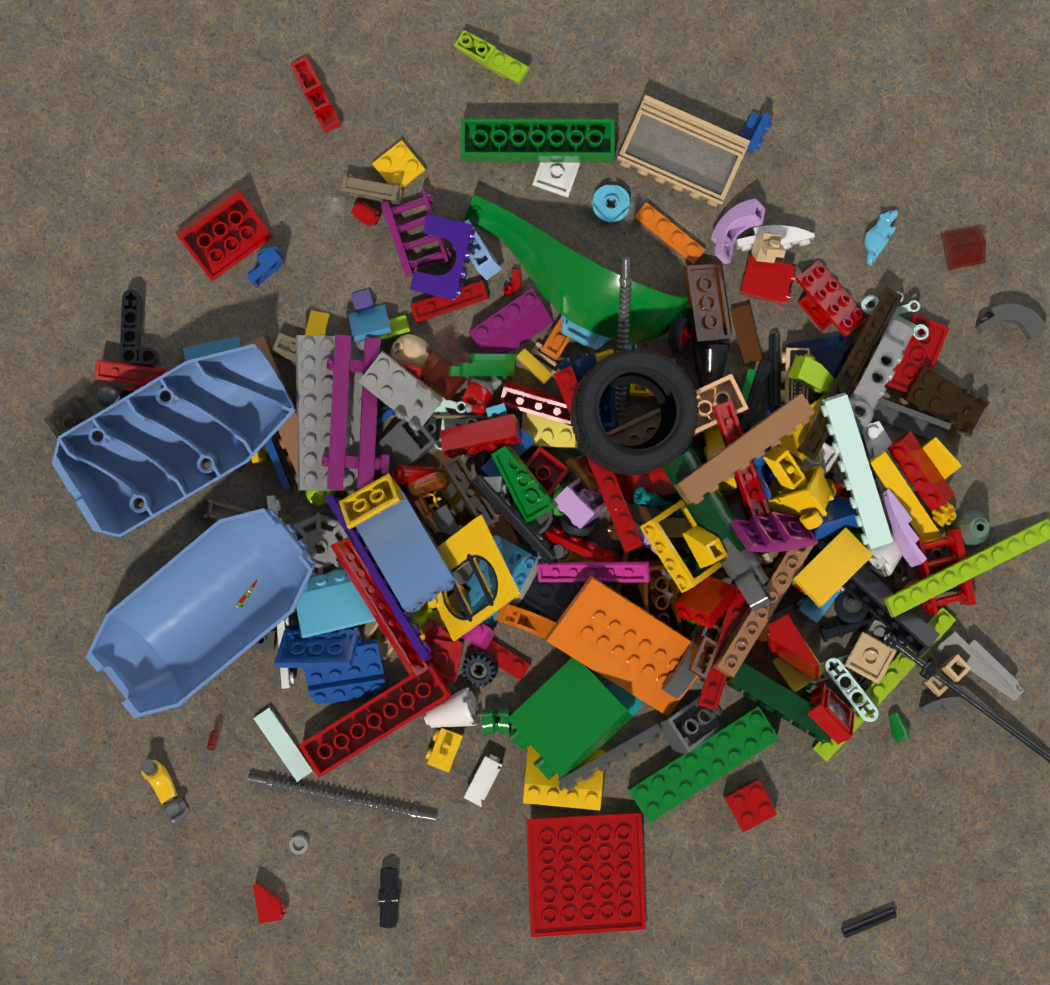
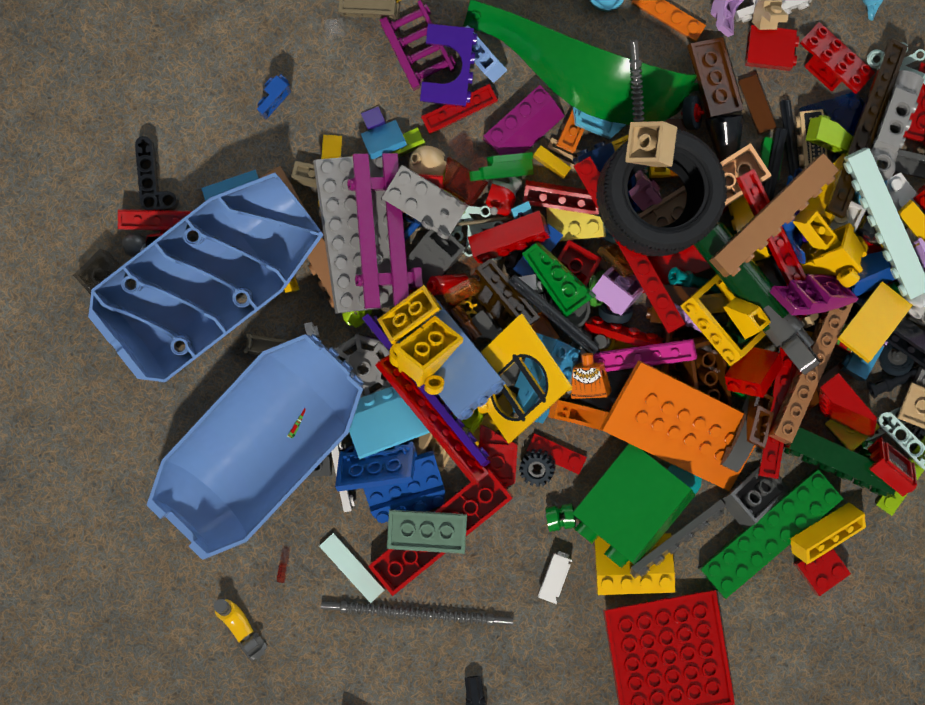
camera: 10 degrees left, 0 degrees up
(223, 234) = (227, 70): red slope -> none
(278, 465) = (311, 292): blue tile -> none
(298, 844) = (380, 665): light grey tile -> none
(360, 718) = (427, 531): none -> sand green tile
(365, 214) = (365, 32): red brick -> none
(381, 541) = (425, 353): none -> yellow piece
(444, 750) = (512, 552): yellow brick -> none
(454, 711) = (517, 513): white cone -> none
(479, 636) = (533, 435): dark pink slope -> none
(512, 287) = (522, 83): red arm -> none
(542, 588) = (590, 379): none -> orange torso
(621, 408) = (645, 192): none -> bright pink brick
(627, 364) = (651, 144): none -> tan slope
(759, 771) = (828, 533): none -> yellow brick

